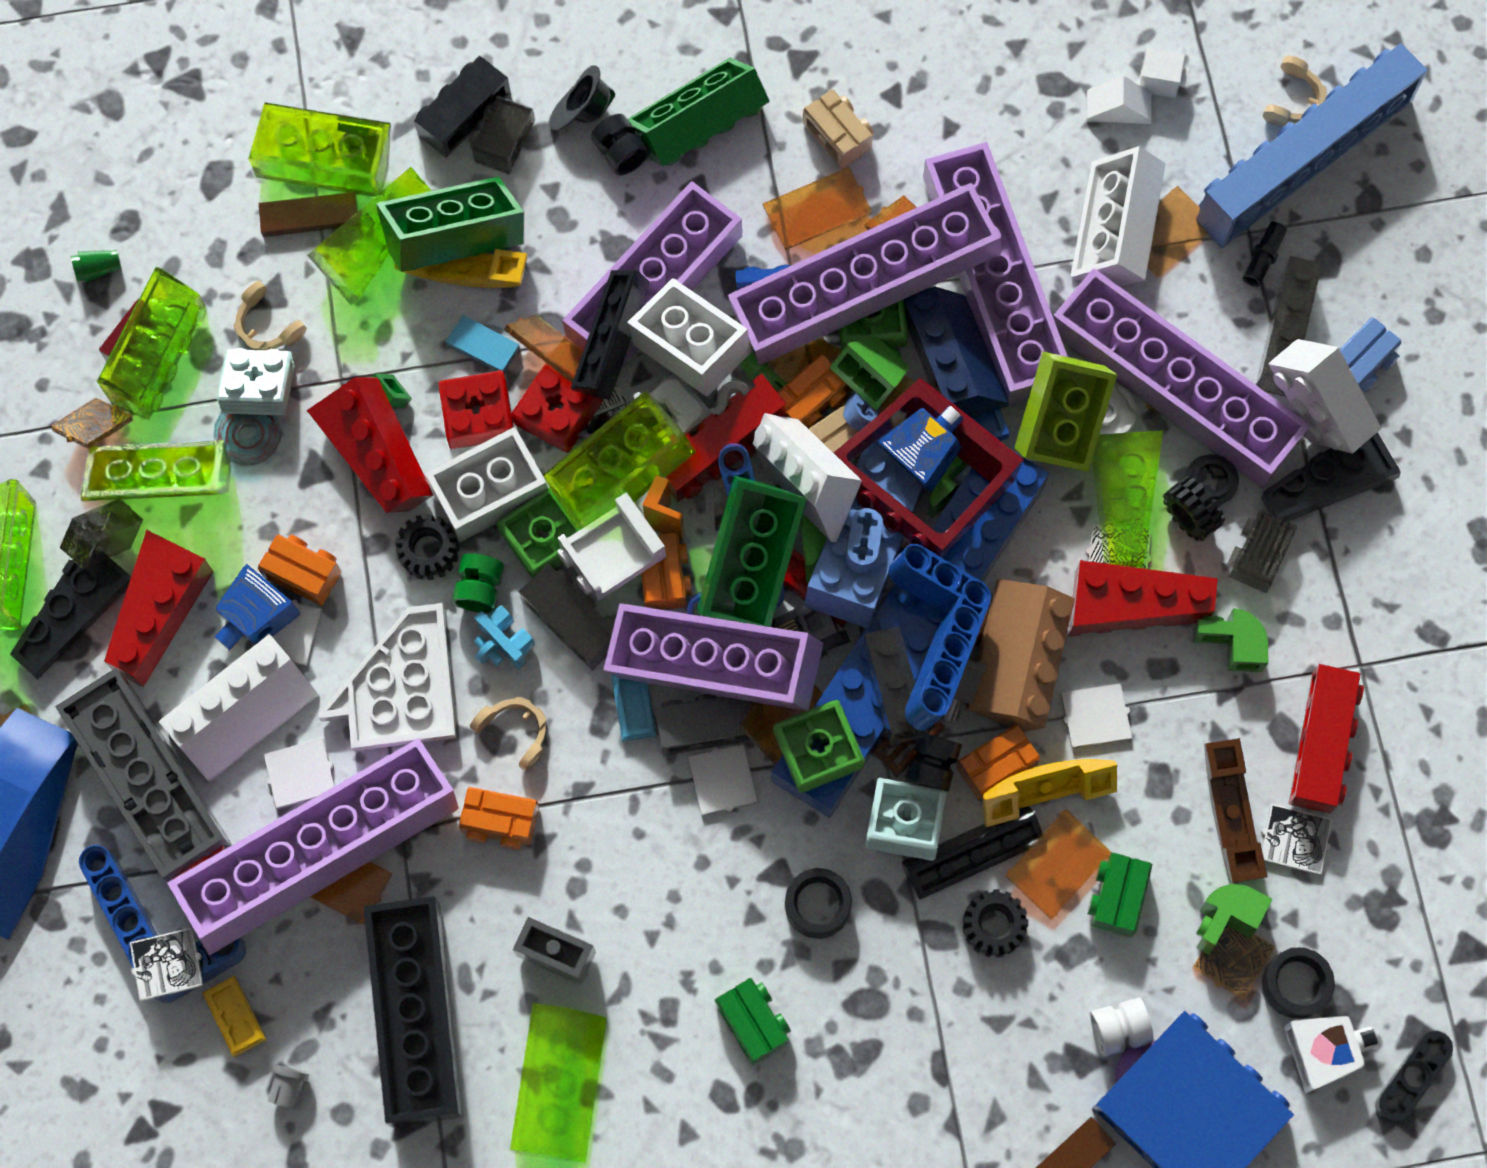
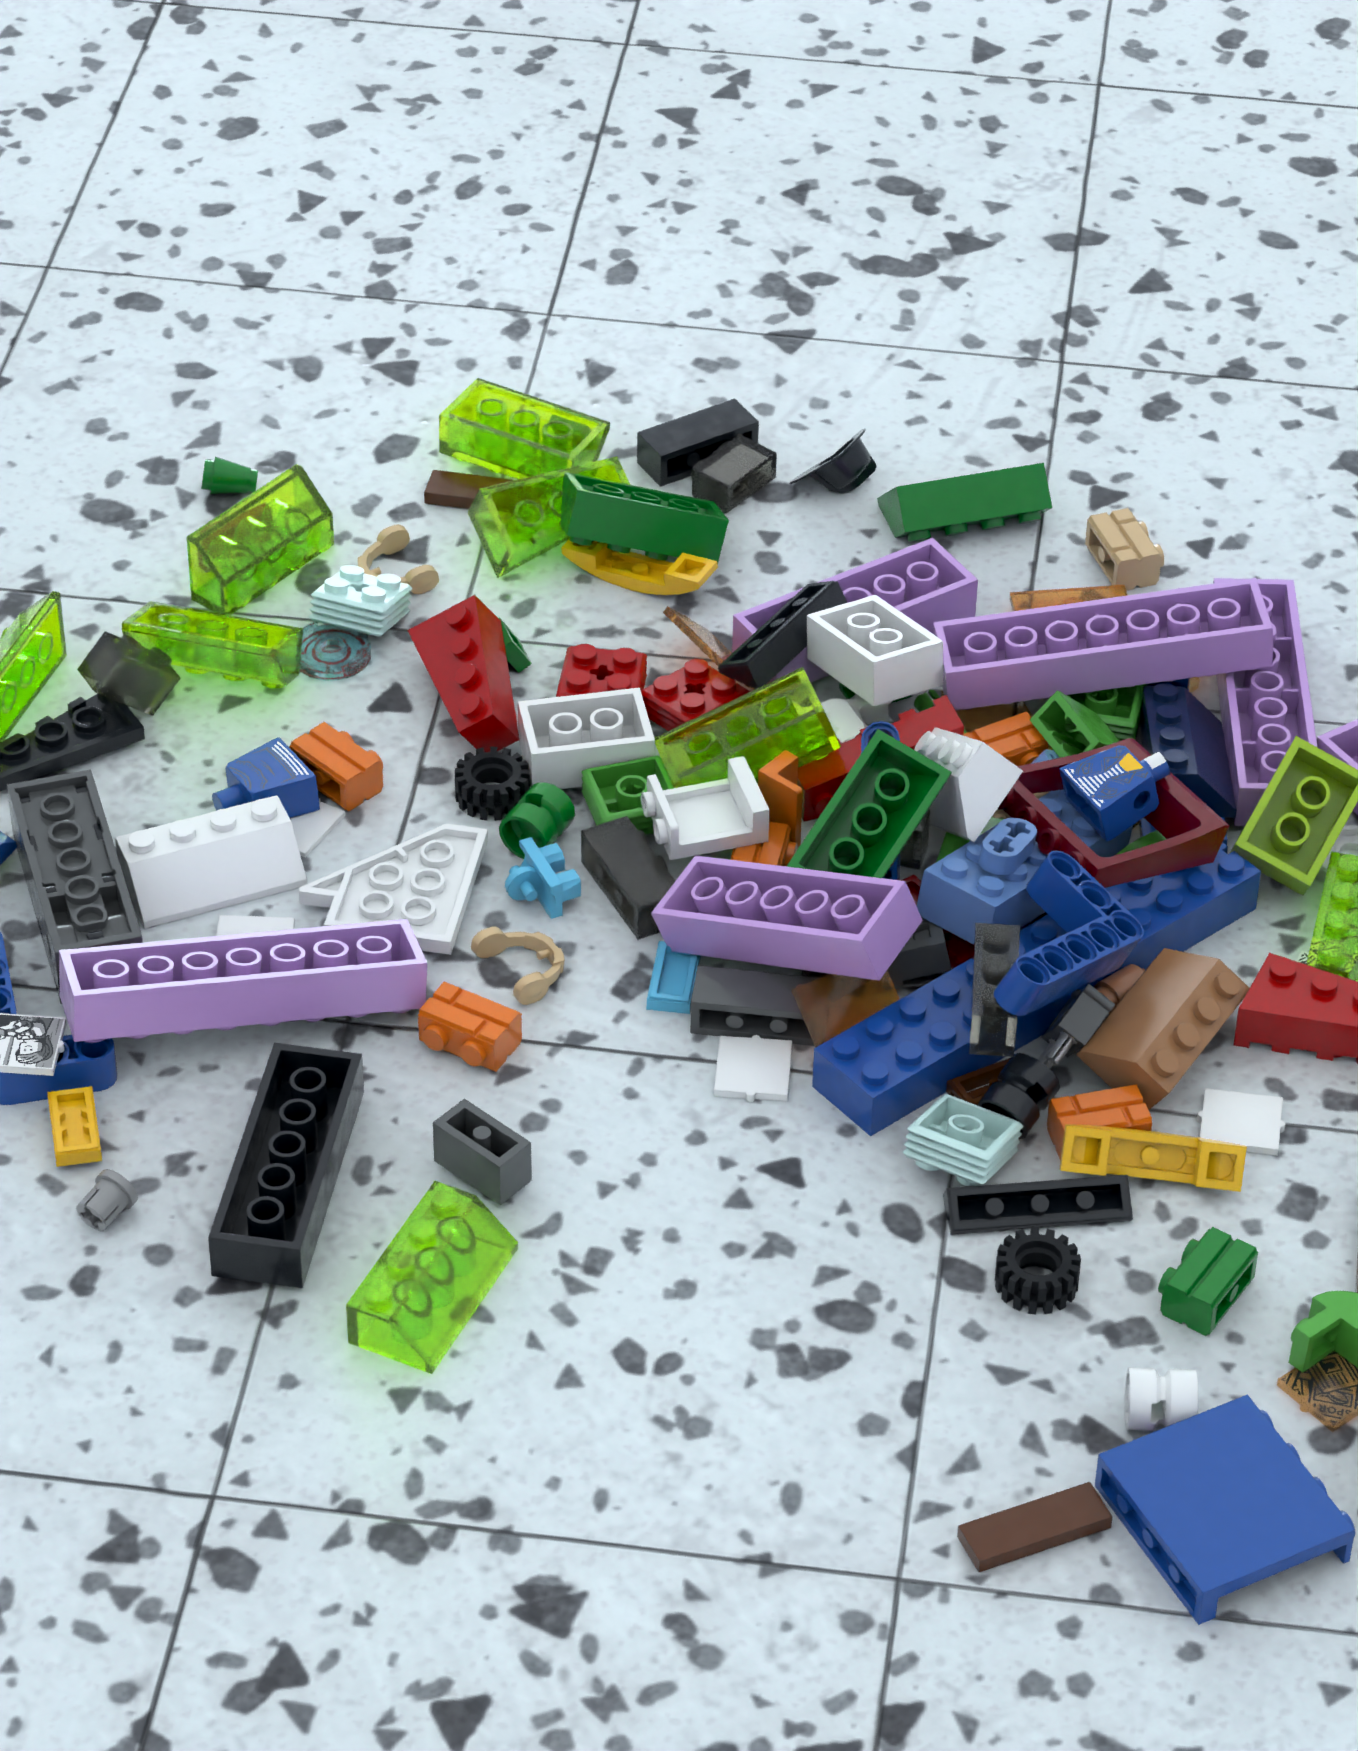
camera: 15 degrees right, 30 degrees down
(92, 423) = (162, 592): clear orange piece -> none
(155, 605) = (162, 753): red wedge -> none
(355, 890) = (251, 1047): clear orange piece -> none
(482, 344) = (624, 629): medium azure tile -> none
(620, 144) = (864, 506): black wheel -> none
(752, 1021) = (696, 1282): green brick -> none
(827, 877) = (825, 1172): black tyre -> none
(829, 726) = (880, 1020): bright green brick -> none
(1058, 864) = (1136, 1239): clear orange piece -> none

